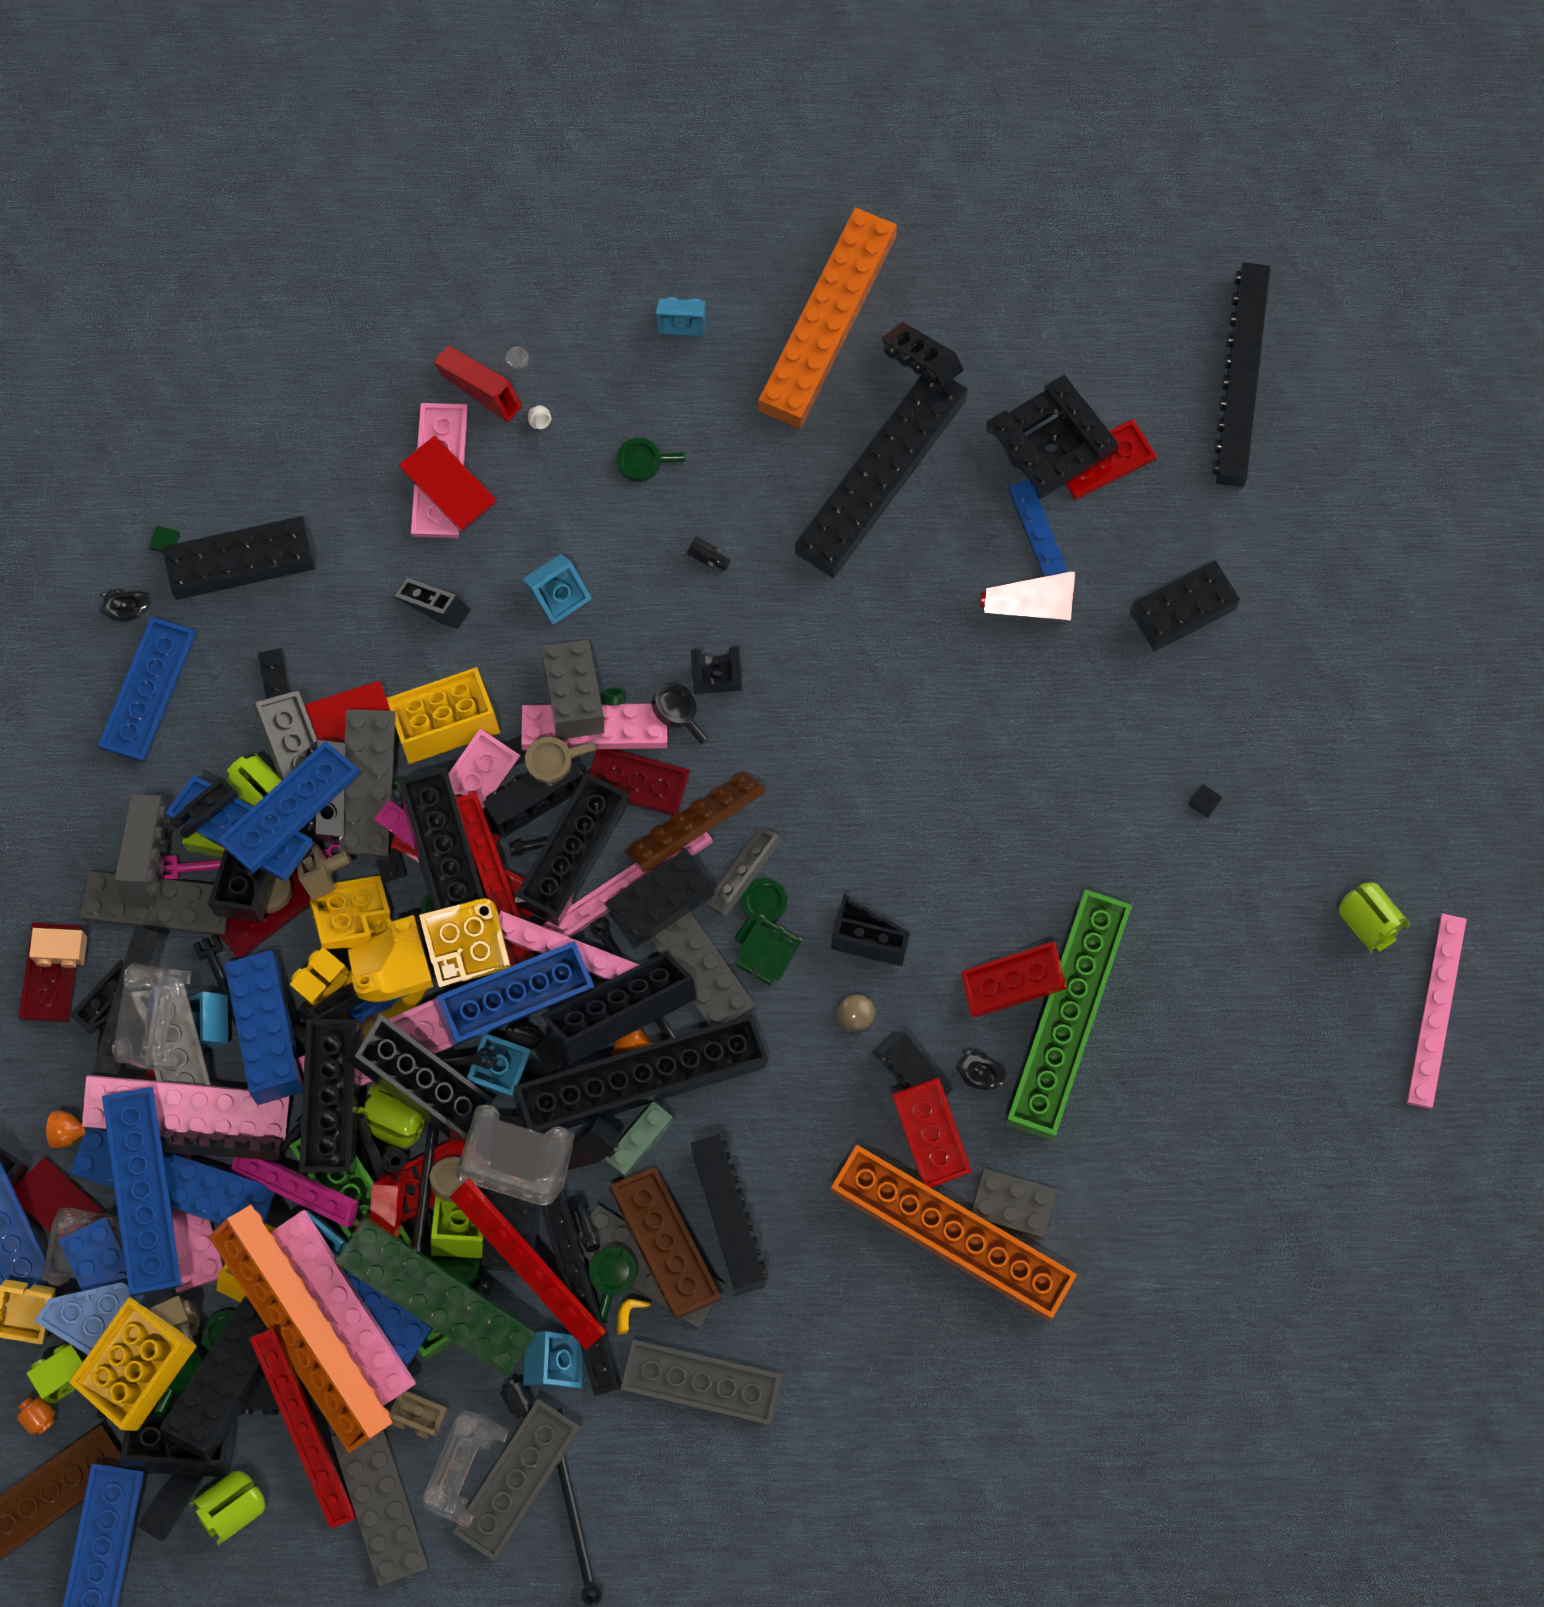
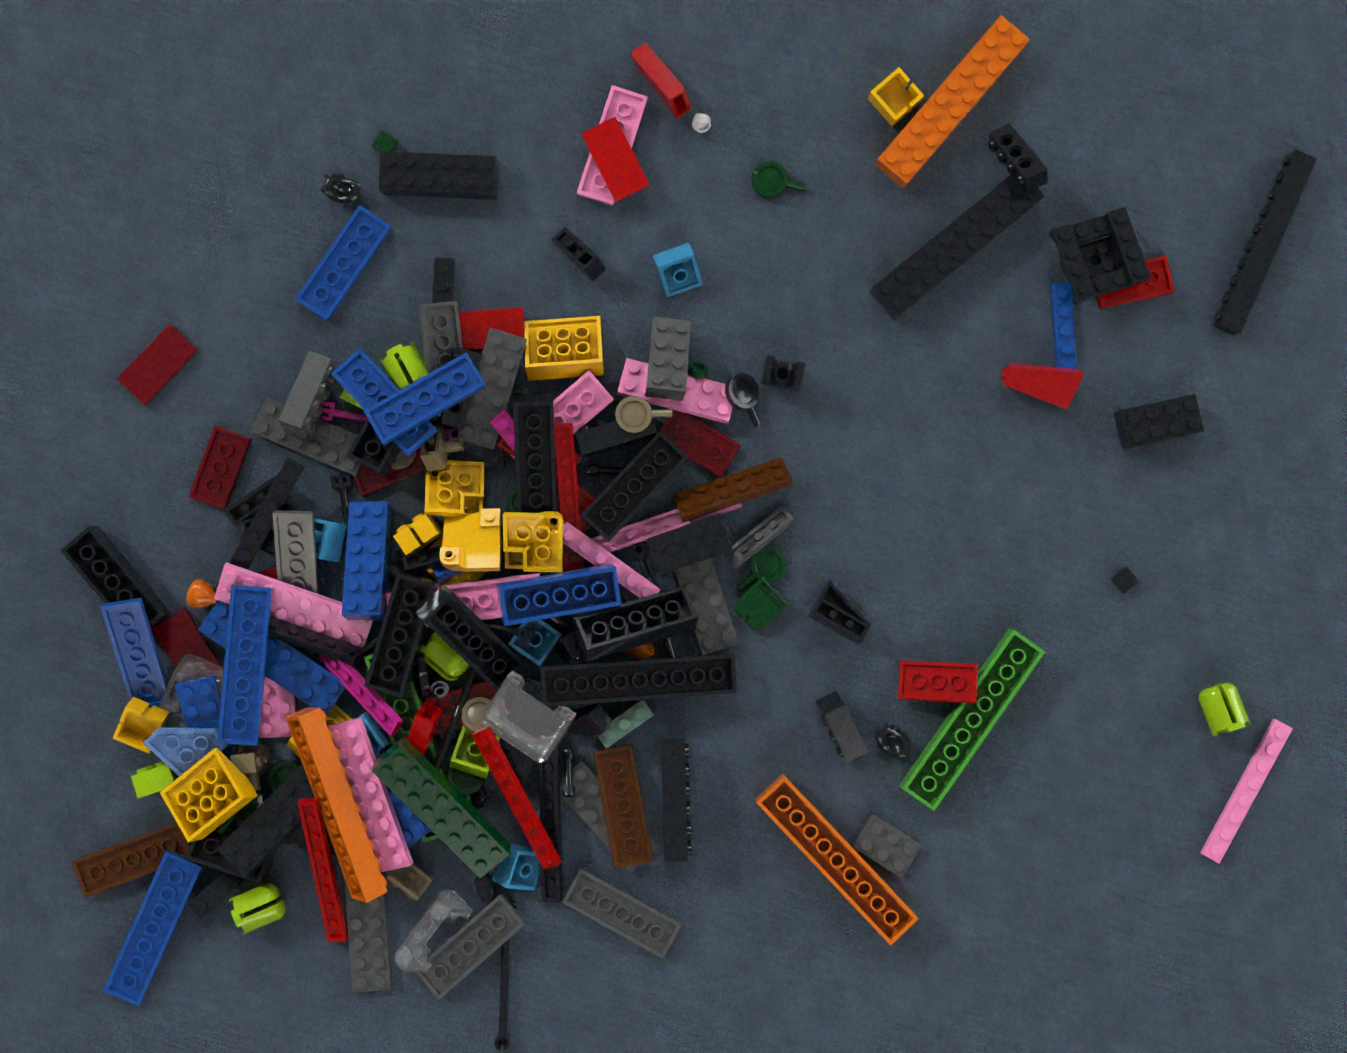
camera: 15 degrees right, 15 degrees up
(36, 1415) = (133, 804): orange head -> none
(58, 947) = (228, 452): light nougat brick -> none
(146, 1016) = (277, 533): clear windscreen -> none
(204, 807) = (361, 379): black hinge -> none
(517, 358) = (697, 67): clear plate -> none
(612, 1273) = (578, 816): dark green piece -> none
(623, 1313) = (579, 845): yellow hair -> none
(681, 317) = (836, 68): dark azure slope -> none
(708, 554) = (802, 274): black hinge -> none
(756, 331) = (893, 99): none -> yellow piece
(855, 1013) = (811, 669): dark tan hair -> none
(931, 1133) = (842, 779): red tile -> none

